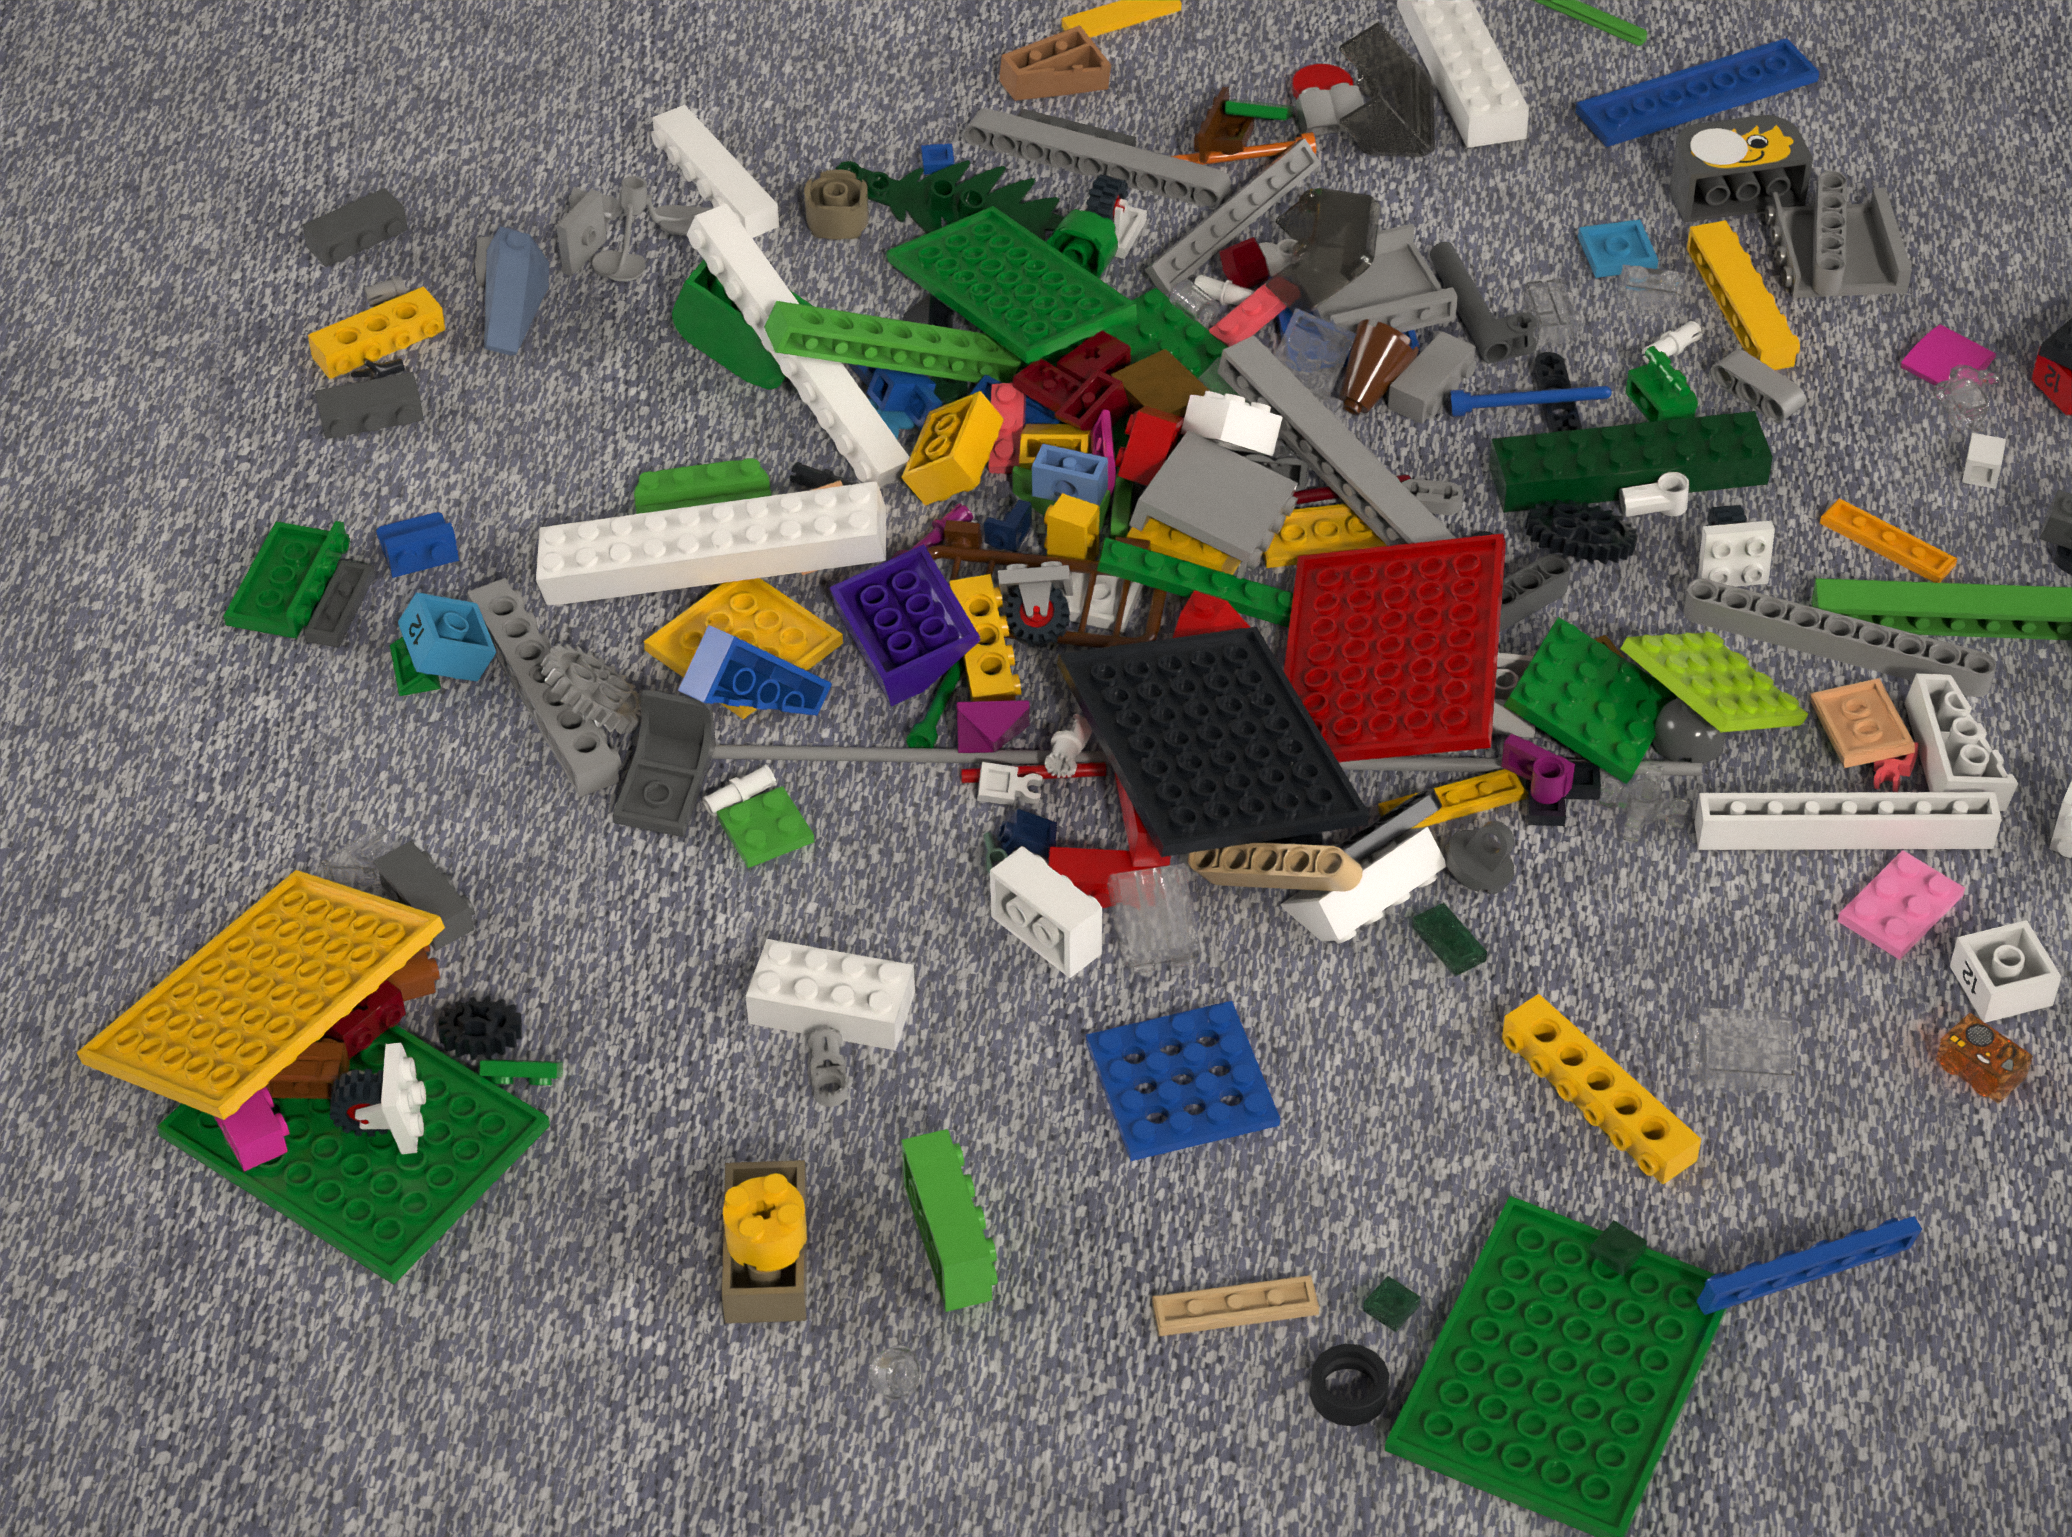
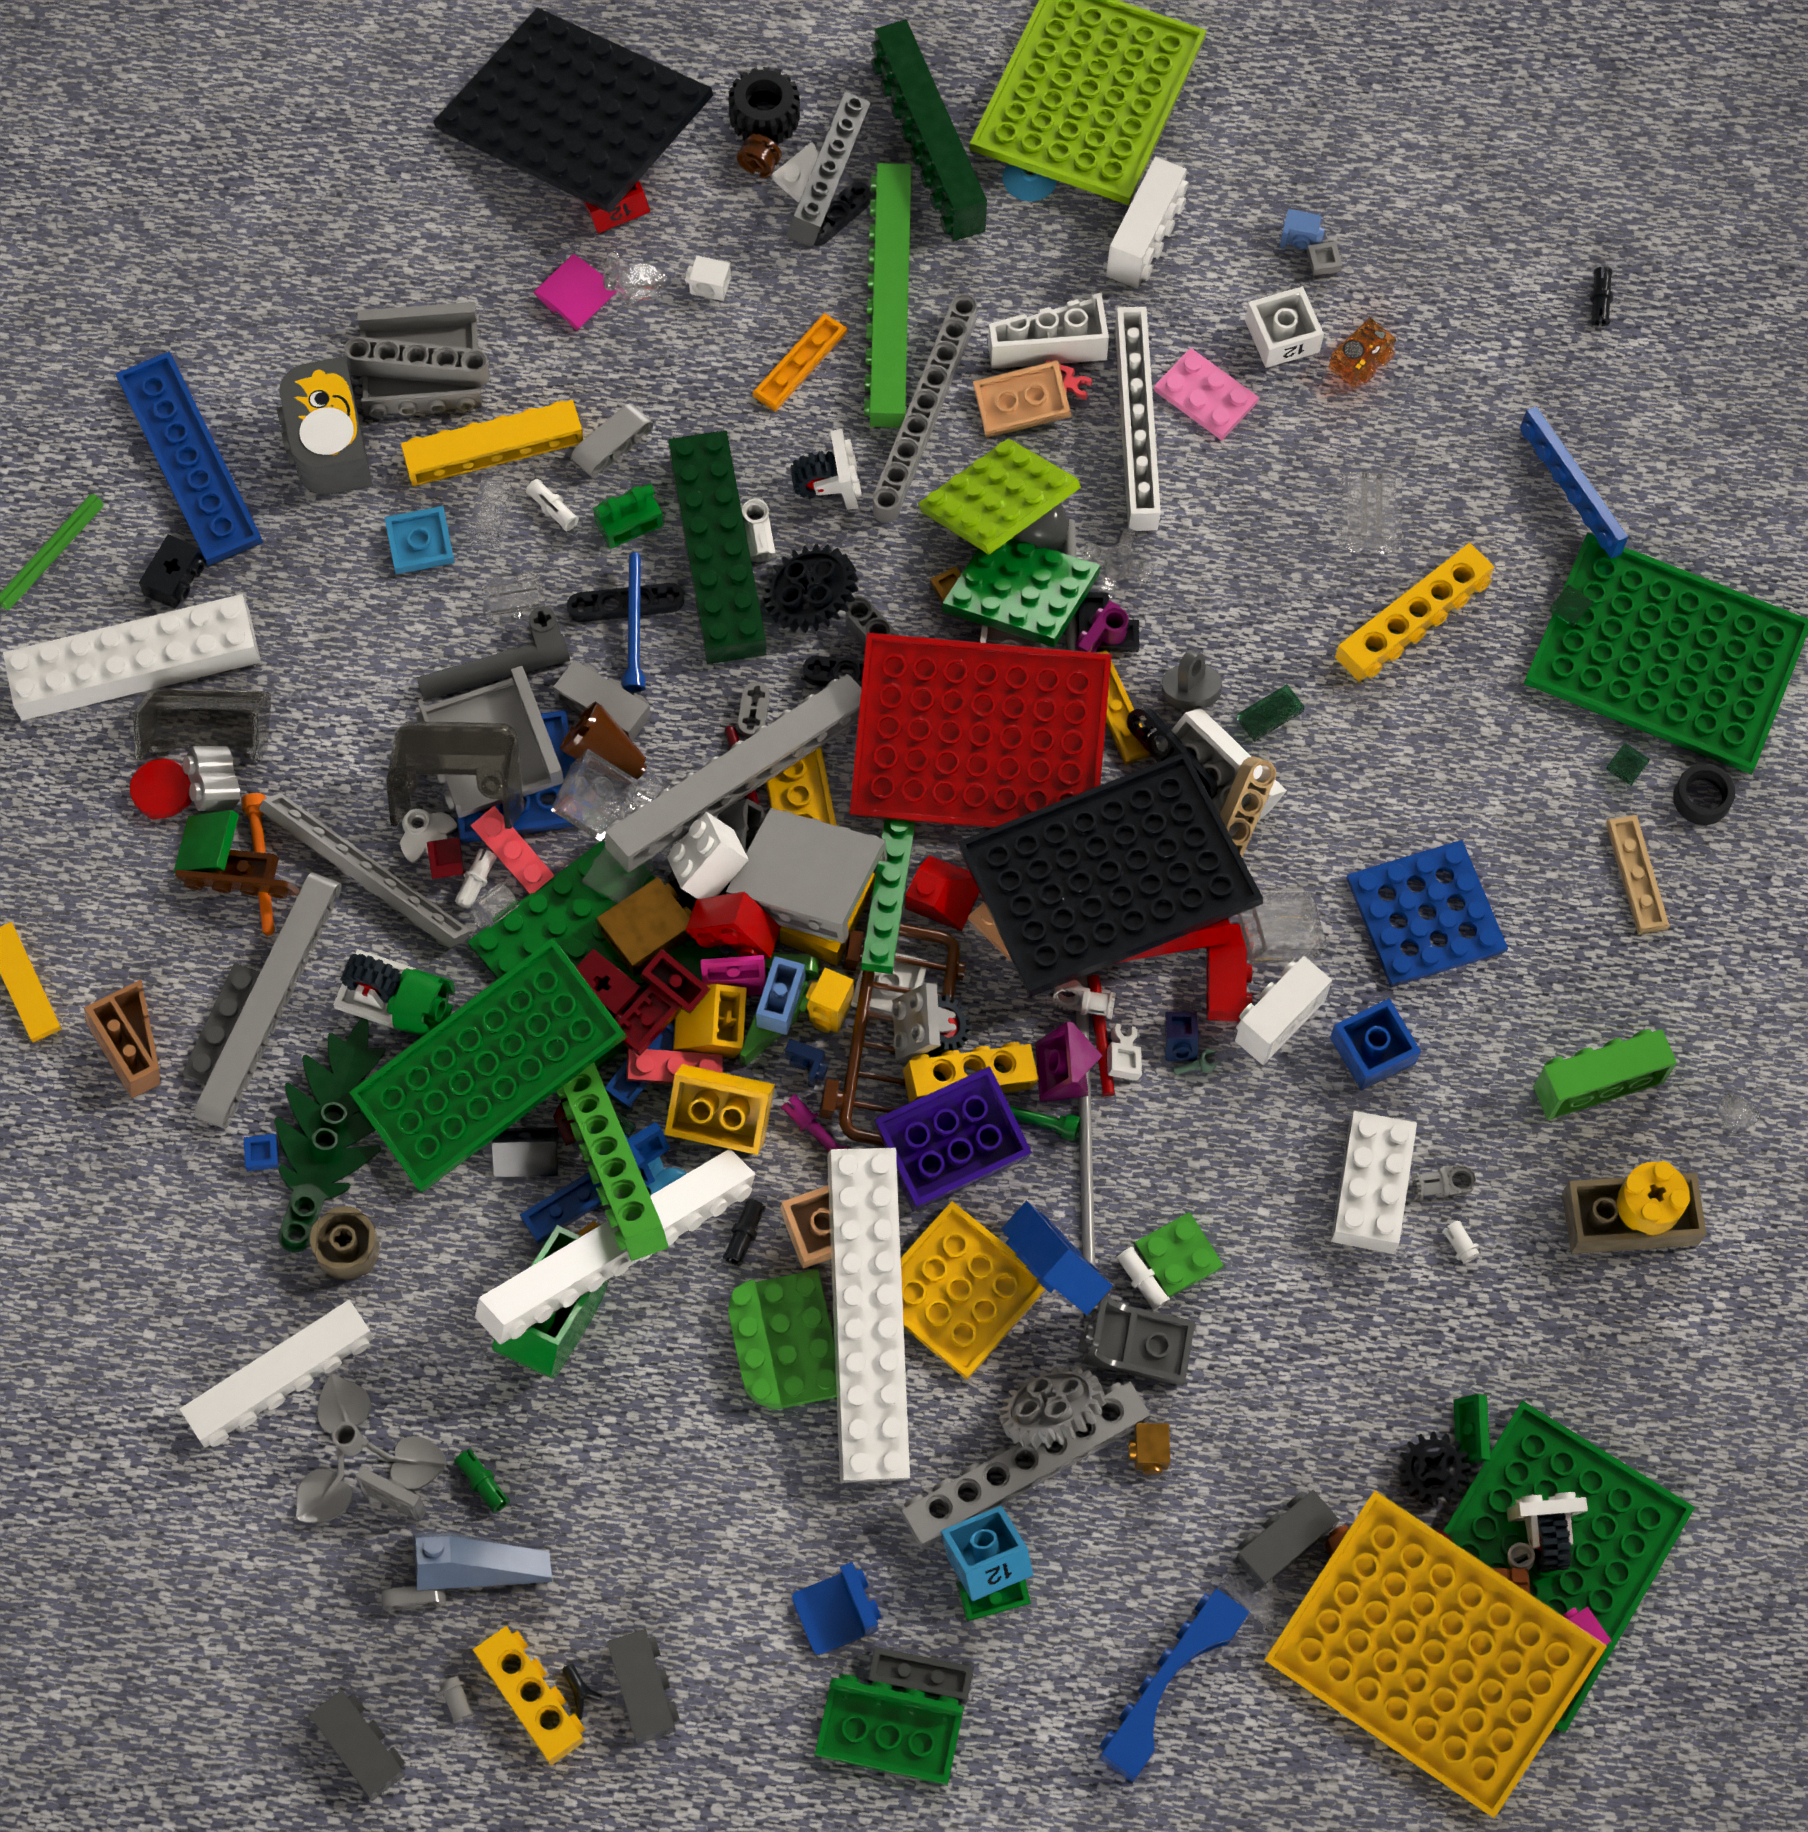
camera: 95 degrees left, 20 degrees up
(235, 760) = (1213, 1627): none -> blue arch
(545, 786) = (1150, 1447): none -> pearl gold brick
(591, 304) = (482, 1481): none -> green pin
(751, 1080) = (1461, 1242): none -> white pin
(1002, 1001) = (1375, 1044): none -> blue brick
(1561, 81) = (172, 571): none -> black brick

